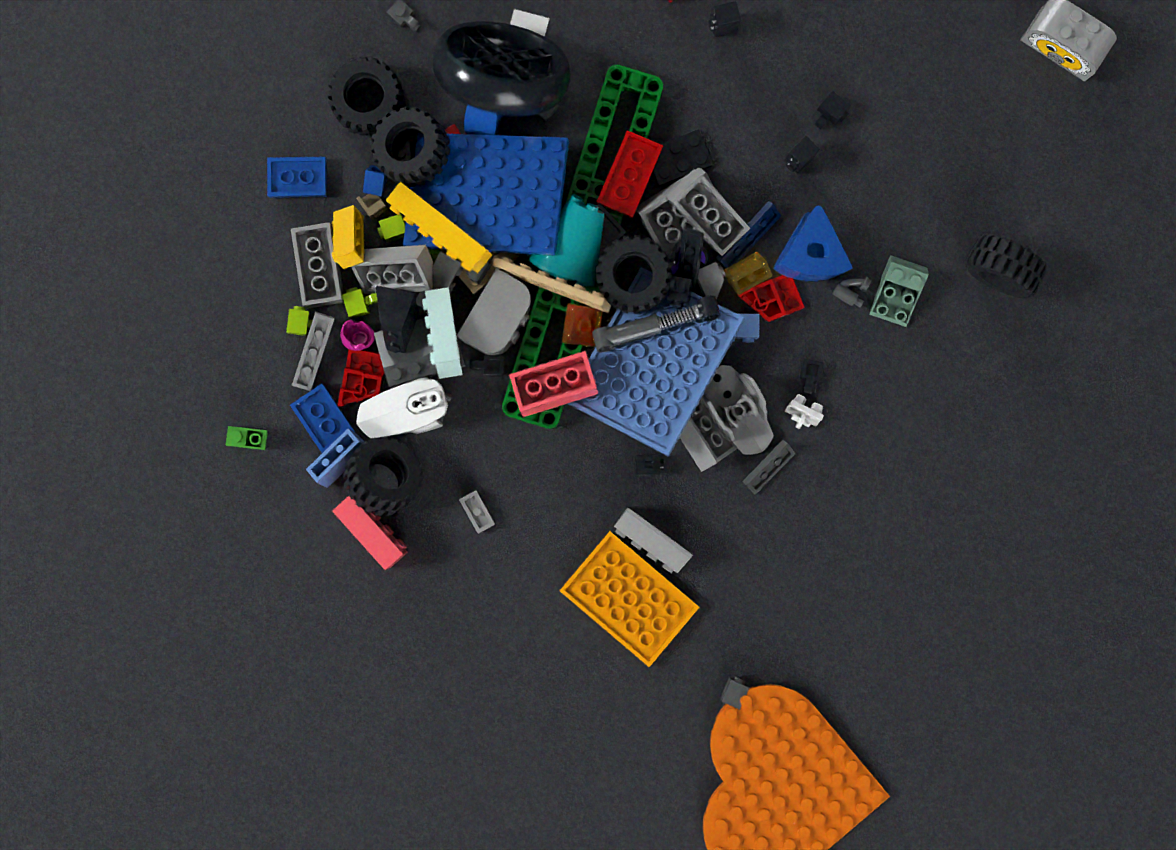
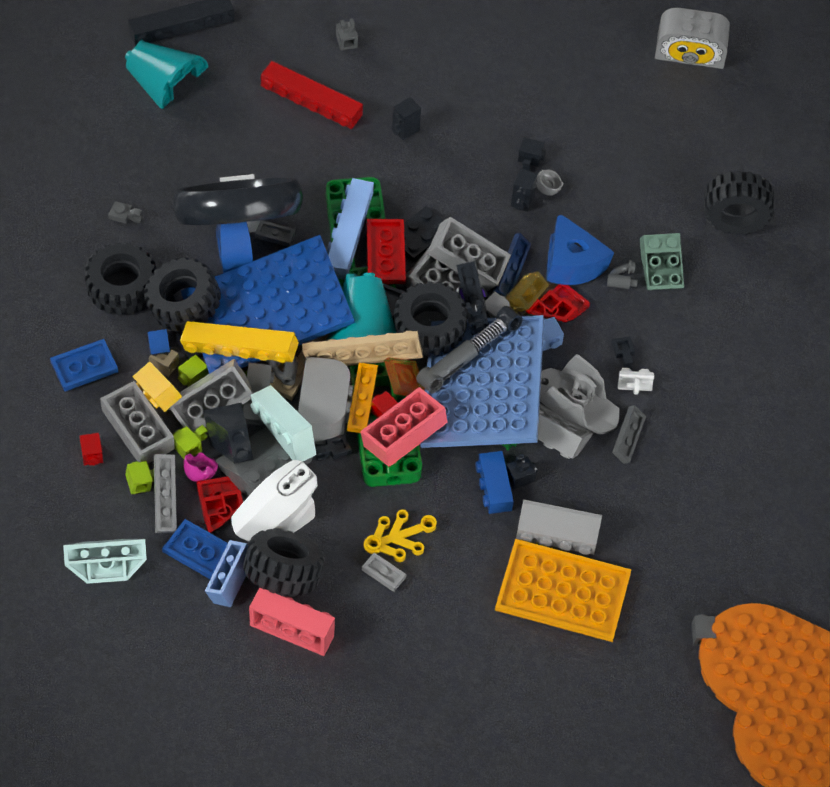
camera: 30 degrees left, 30 degrees down
(233, 393) = (105, 559): none -> light aqua wedge
(246, 438) = (134, 590): bright green slope -> none
(267, 273) = (91, 449): none -> red brick
(505, 479) = (398, 537): none -> yellow plant
(533, 330) = (362, 397): none -> light orange plate
(548, 350) = (382, 403): none -> red brick
(606, 132) = (349, 226): none -> light blue brick
(618, 464) = (494, 482): none -> blue brick
(833, 152) = (549, 182): none -> light grey hair

